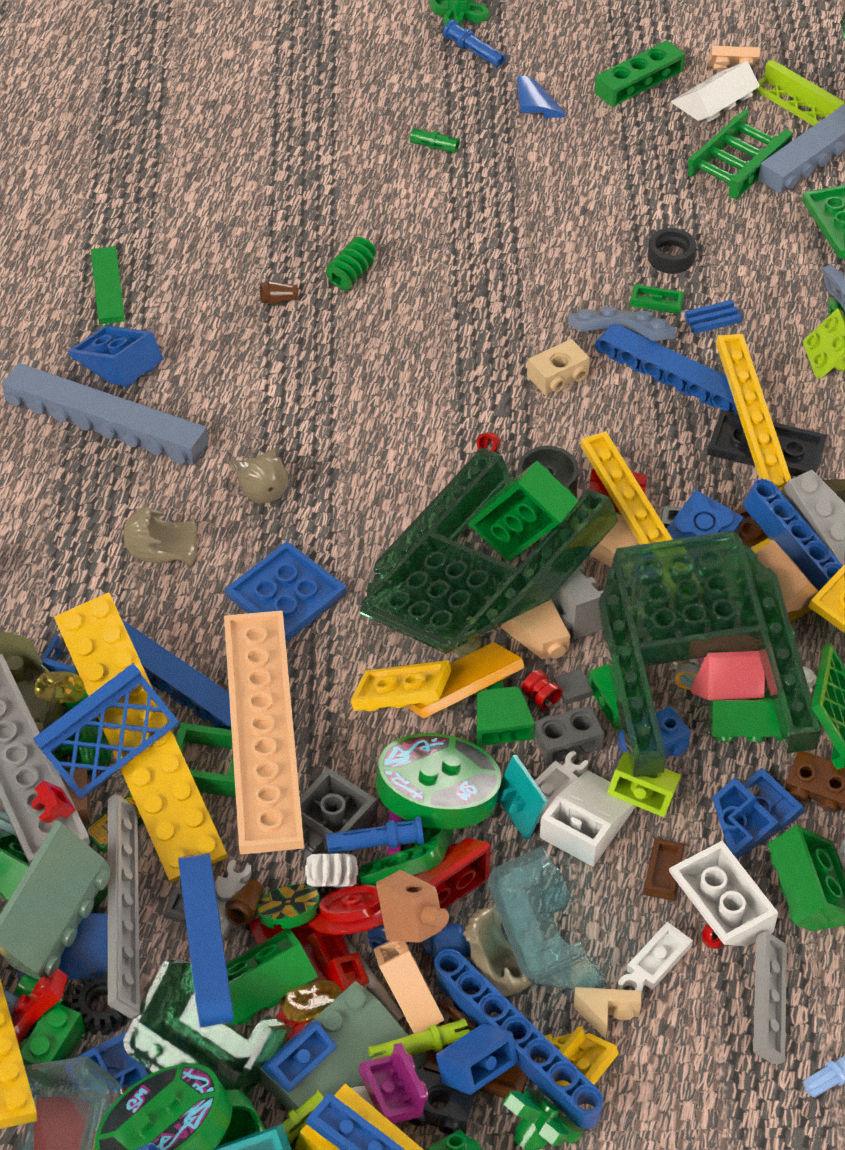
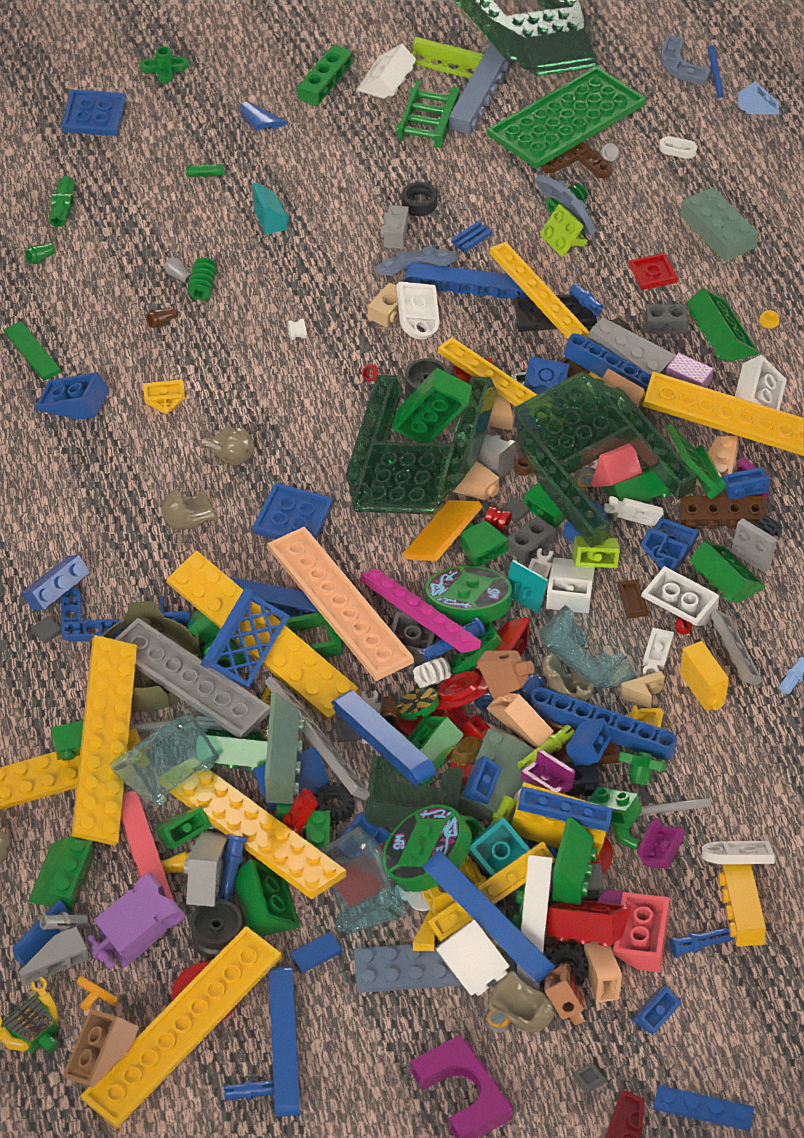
camera: 25 degrees left, 0 degrees up
(54, 801) = (238, 692): red tile -> none
(60, 681) = (191, 619): clear yellow beam -> none
(105, 414) = (92, 440): sand blue brick -> none
(186, 175) = (37, 253): none -> green cone
(225, 387) = (164, 395): none -> yellow slope
(247, 125) = (61, 201): none -> green piece
(329, 241) = (177, 269): none -> light grey cone
(347, 38) = (93, 112): none -> blue plate
(358, 782) = (420, 611): none -> dark pink plate
(401, 686) = (410, 546): yellow plate -> none
(428, 360) = (297, 329): none -> white wheel
(466, 39) = (183, 86): blue pin -> none
(479, 206) = (269, 210): none -> teal slope
(590, 381) = (418, 308): none -> white tile
(621, 274) = (395, 226): none -> light grey brick
(656, 301) = (427, 238): green tile -> none
(697, 1024) = (704, 676): none -> yellow brick
(726, 746) = (634, 511): none -> white plate
(727, 56) = (380, 45): light nougat plate -> none
(813, 441) = (586, 299): none -> blue pin

